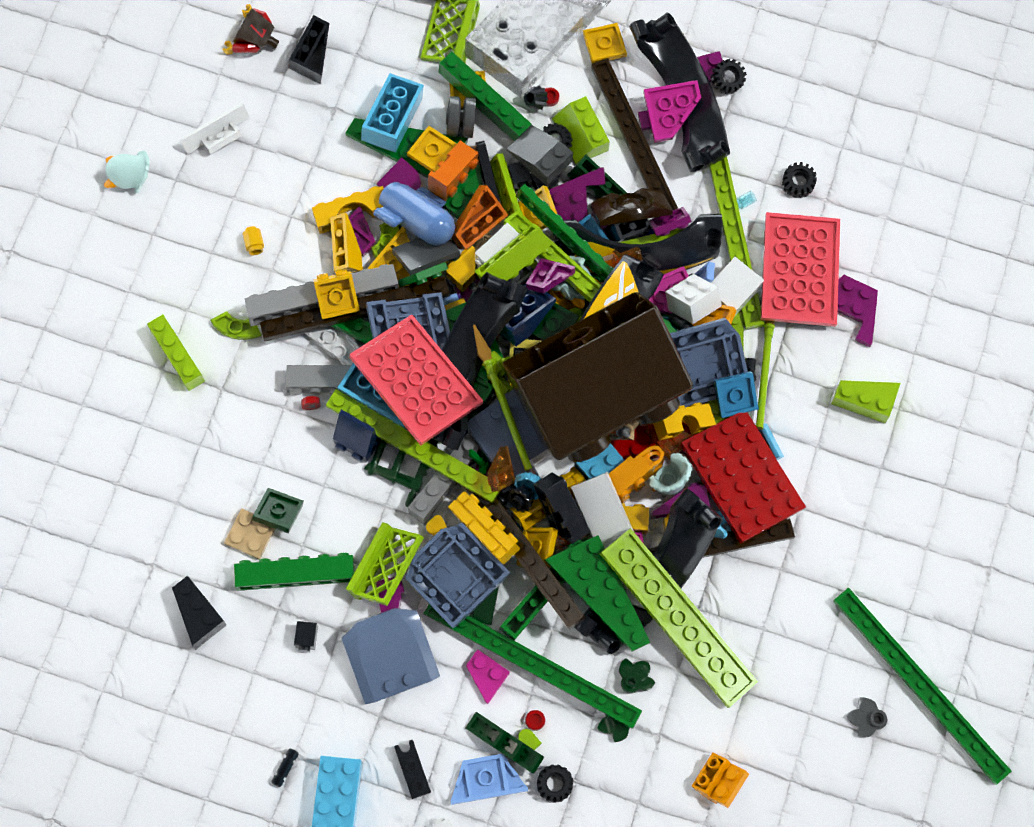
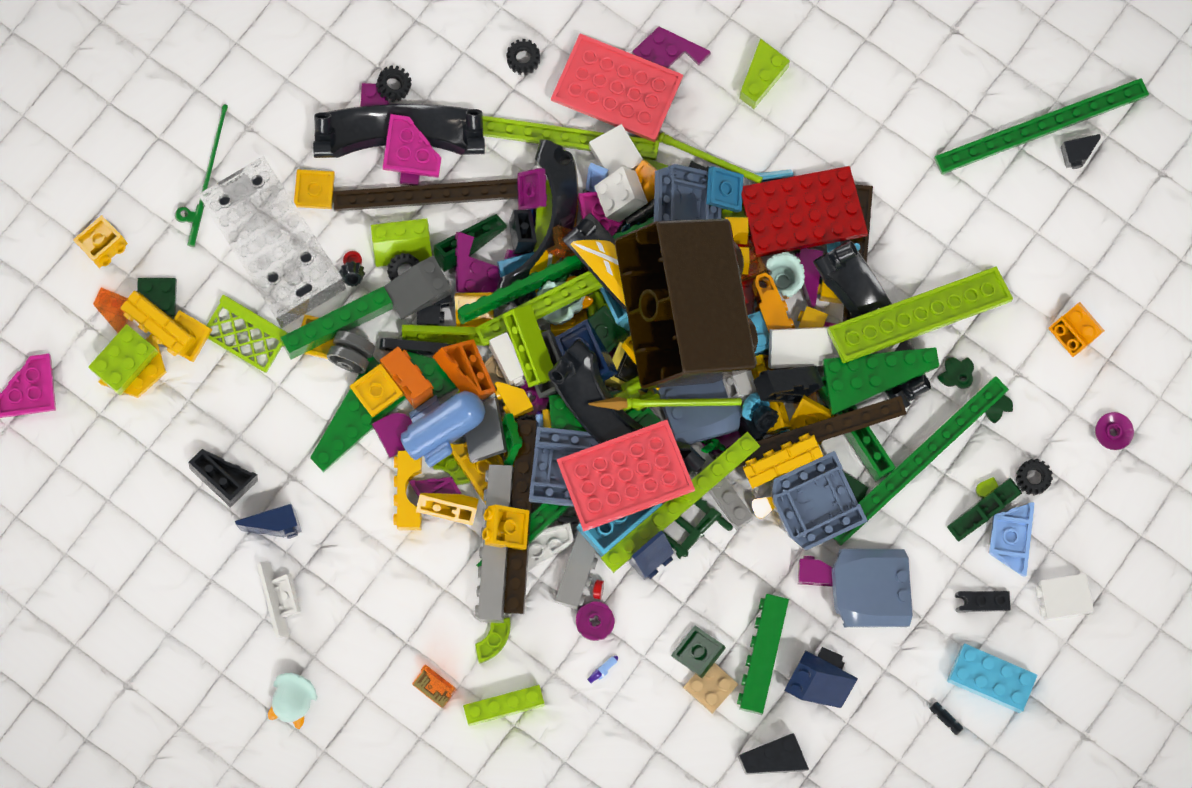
camera: 70 degrees left, 5 degrees up
(177, 288) = (434, 686): none -> clear orange panel
(235, 431) = (602, 670): none -> piece
(253, 33) = (181, 529): dark brown torso -> none
(253, 240) = (409, 595): yellow brick -> none
(272, 402) = (604, 615): none -> magenta plate
(281, 630) = (820, 682): none -> dark blue slope
(286, 109) = (275, 522): none -> dark blue slope
(374, 560) = (775, 576): lime fence -> none
(392, 112) = (322, 417): medium azure brick -> none
(486, 674) = (915, 506): dark pink wing -> none
(501, 470) = (737, 426): clear orange wing -> none
(535, 720) = (970, 476): red tile -> none
(548, 275) = (559, 318): magenta wing -> none
(630, 206) = (505, 221): dark brown slope -> none
(746, 199) = (526, 112): clear light blue hinge -> none
(865, 716) = (1054, 185): dark grey plate -> none
(910, 730) = (1077, 151): none -> black slope

